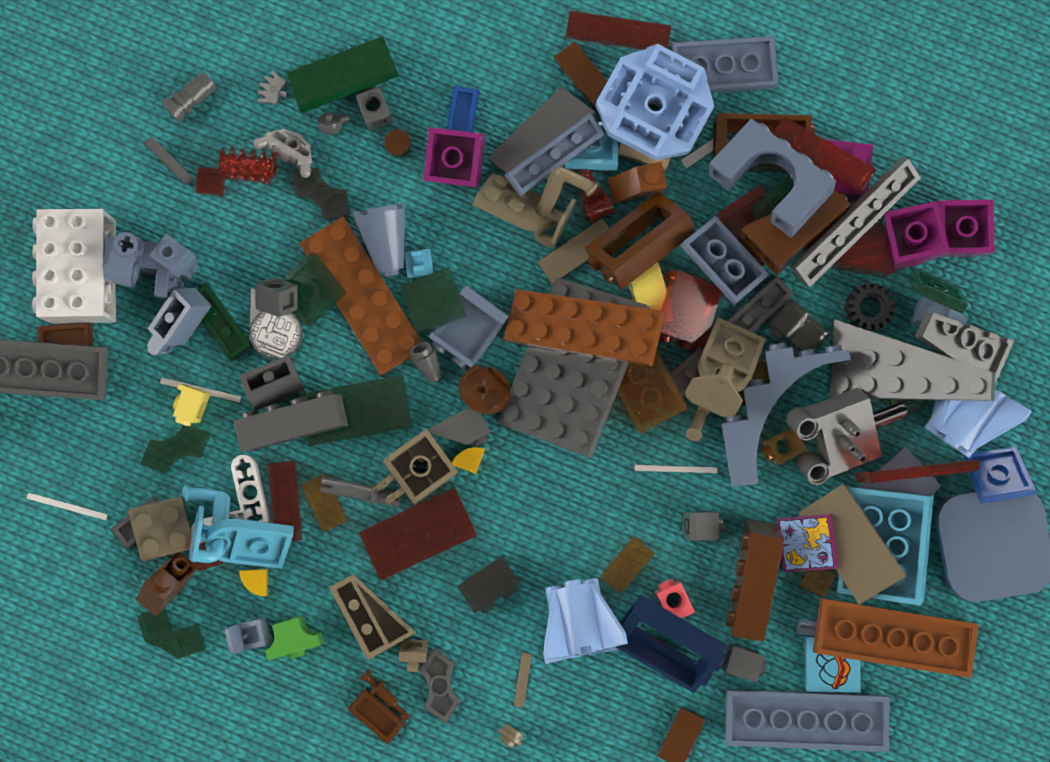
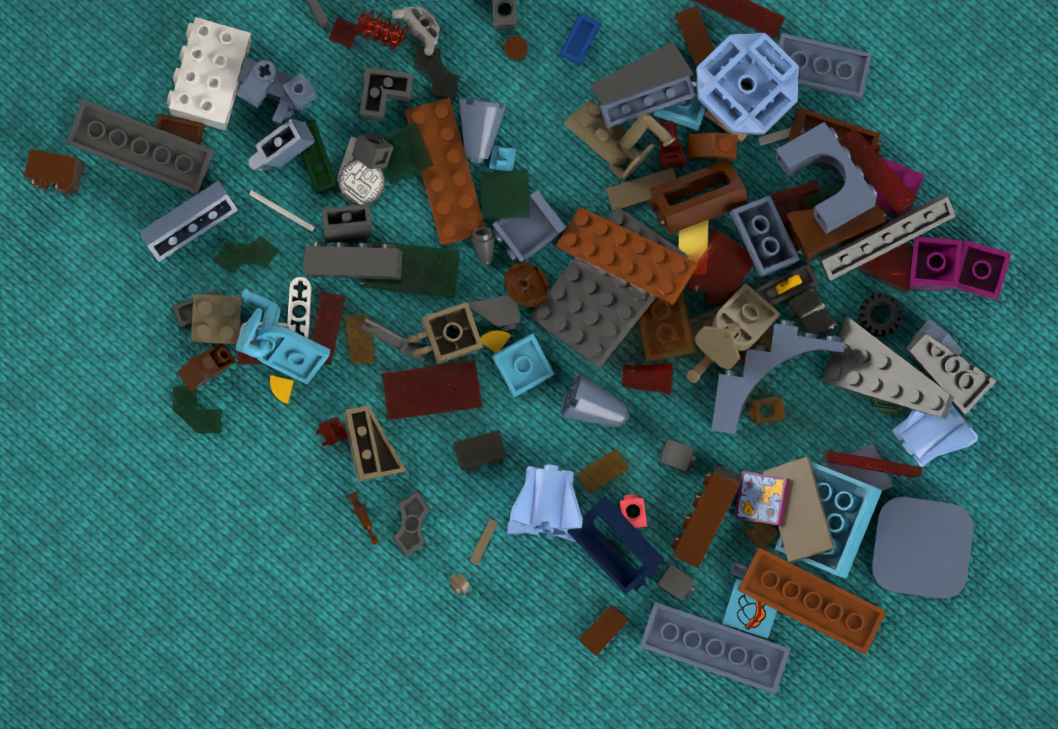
camera: 15 degrees right, 0 degrees up
(67, 506) = (138, 276): white piece -> none
(100, 432) = (188, 221): none -> sand blue brick
(190, 404) = (270, 221): light yellow brick -> none
(248, 635) = (262, 431): sand blue bracket -> none
(265, 225) = (381, 86): none -> dark grey brick
(292, 639) = (299, 446): bright green brick -> none
(323, 611) = (332, 431): none -> clear red tile
(331, 123) = (463, 13): dark grey piece -> none
(376, 715) = (350, 533): reddish brown tile -> none
(413, 653) = (398, 489): dark tan tile -> none
(454, 157) = (561, 77): magenta brick -> none
(507, 477) = (523, 365): none -> medium azure tile
(595, 497) = (593, 404): none -> sand blue cone
(646, 449) = (648, 377): none -> clear red plant
(676, 469) = (671, 403): white piece -> none
(764, 304) = (791, 283): none -> yellow tile
(843, 433) = (821, 413): dark grey piece -> none
(937, 291) = (940, 317): clear green tile -> none
(1000, 475) = (944, 490): blue tile -> none

